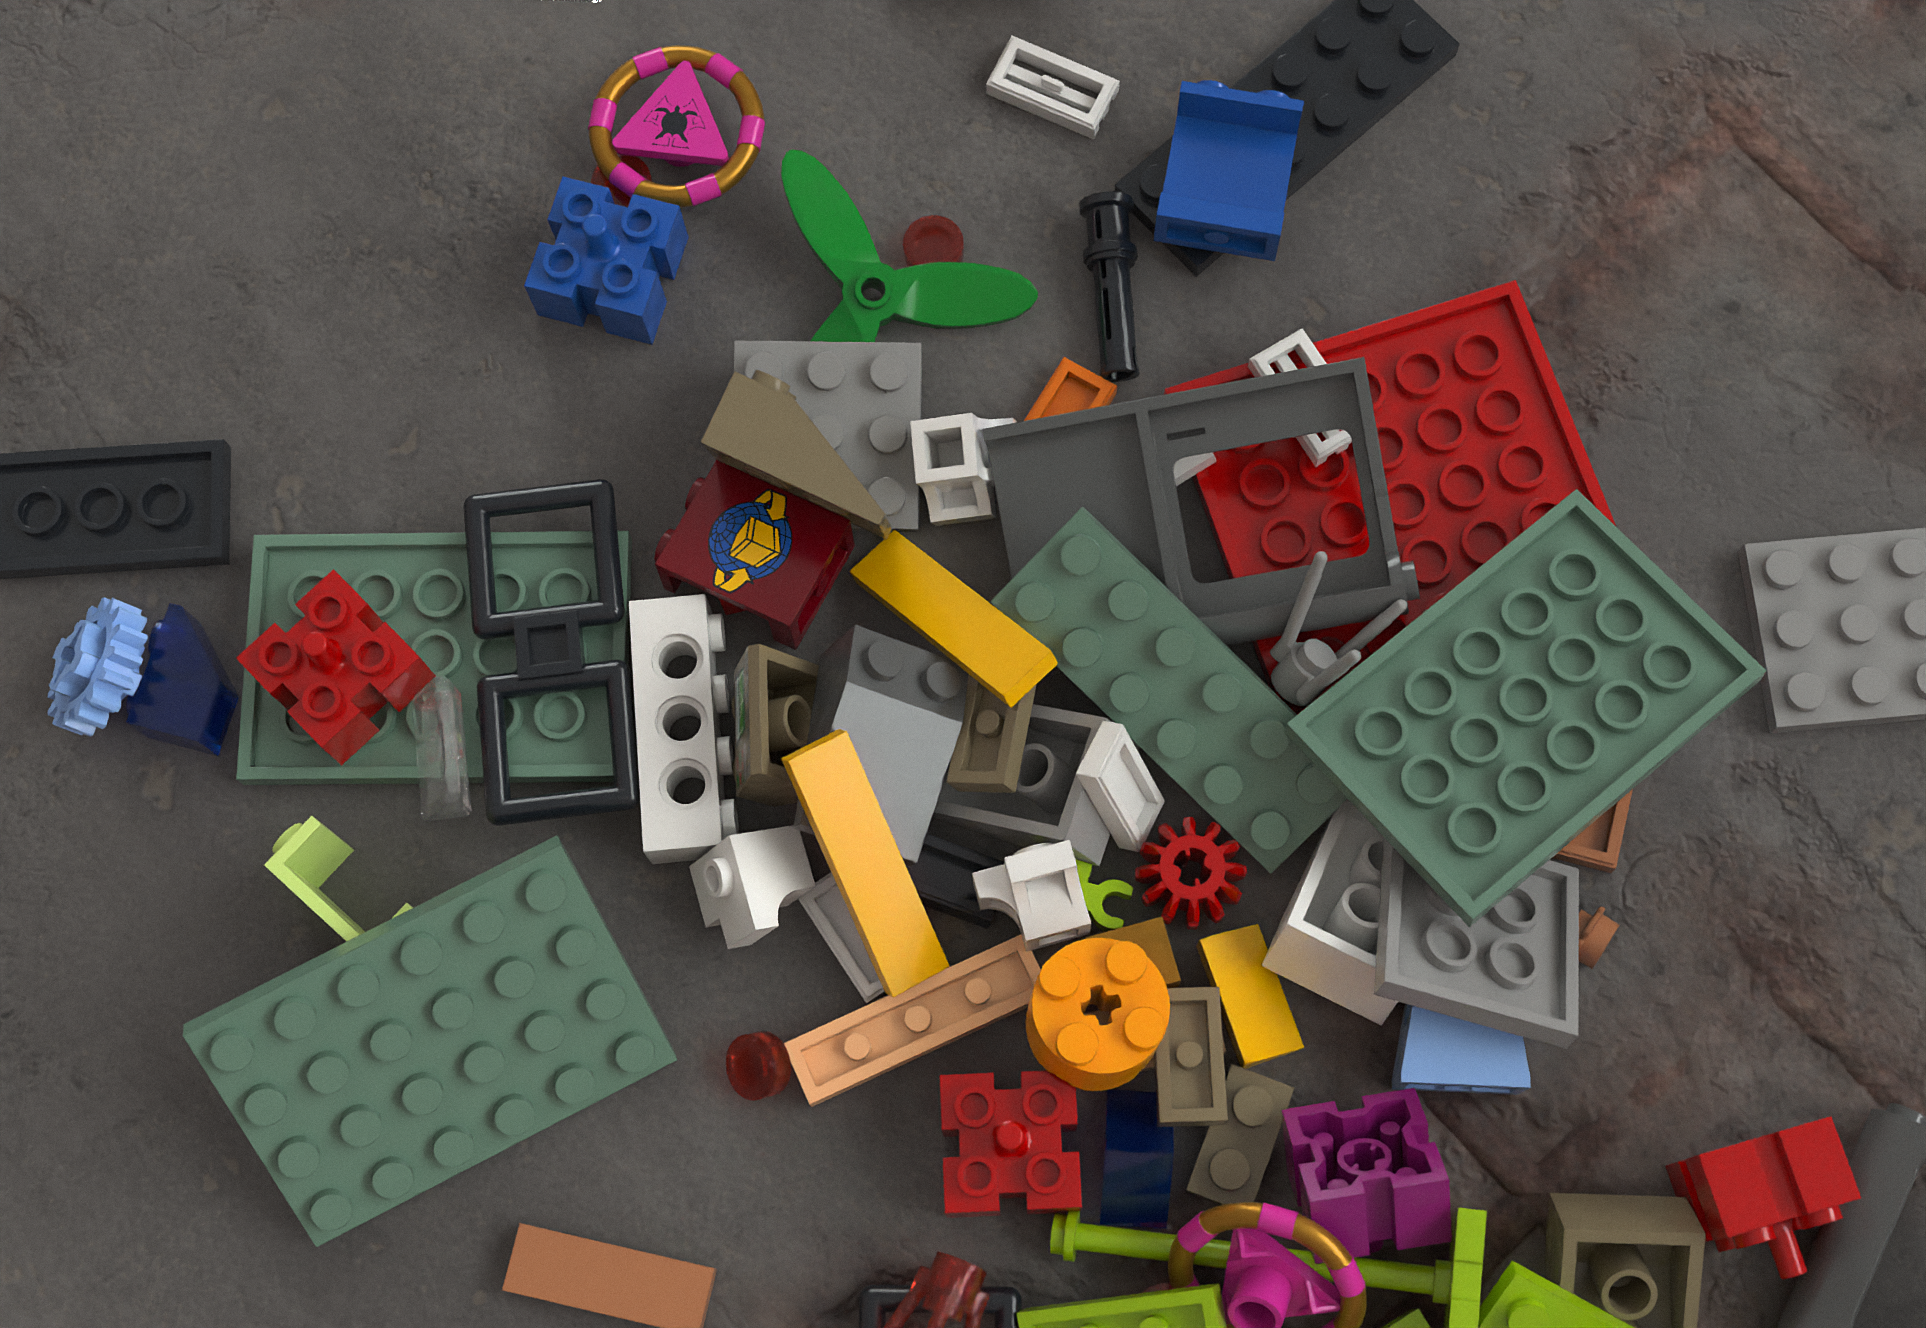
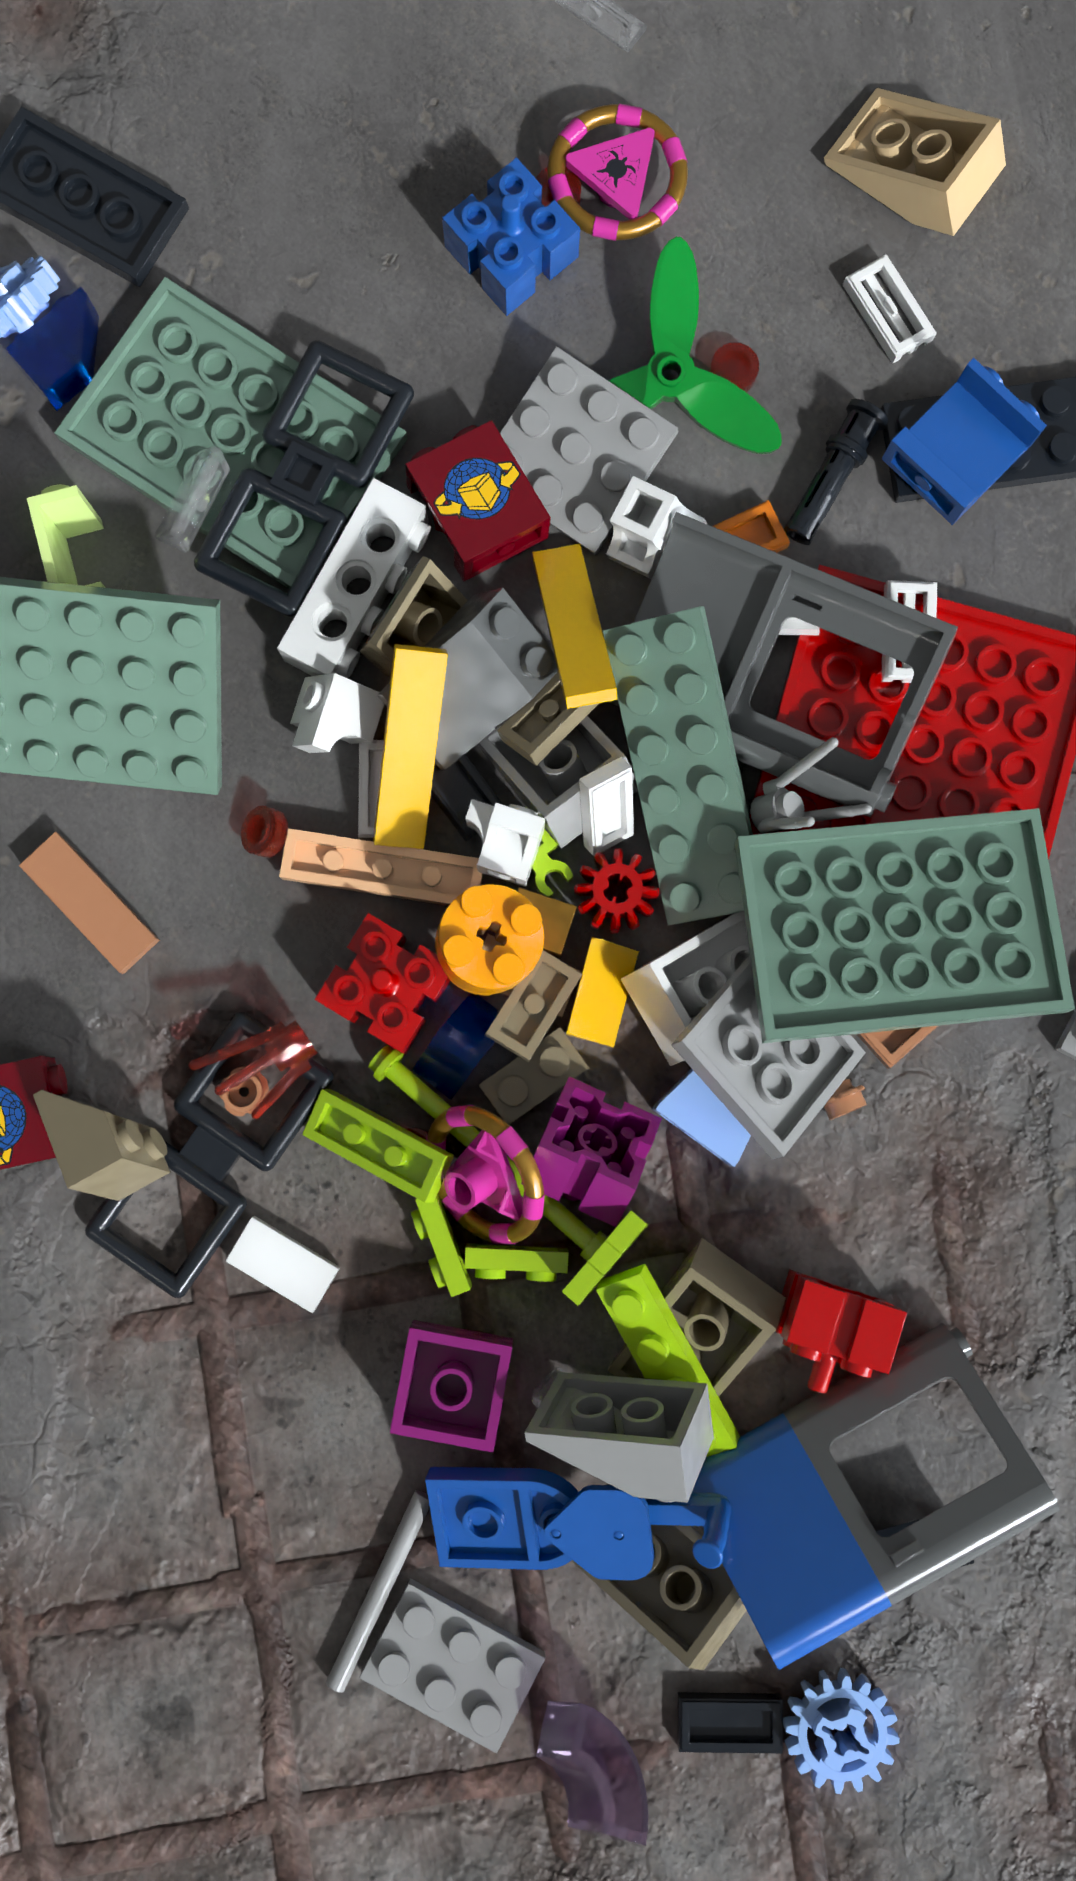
camera: 25 degrees right, 10 degrees up
(336, 667) = (157, 398): red brick -> none
(773, 439) = (531, 422): dark tan slope -> none

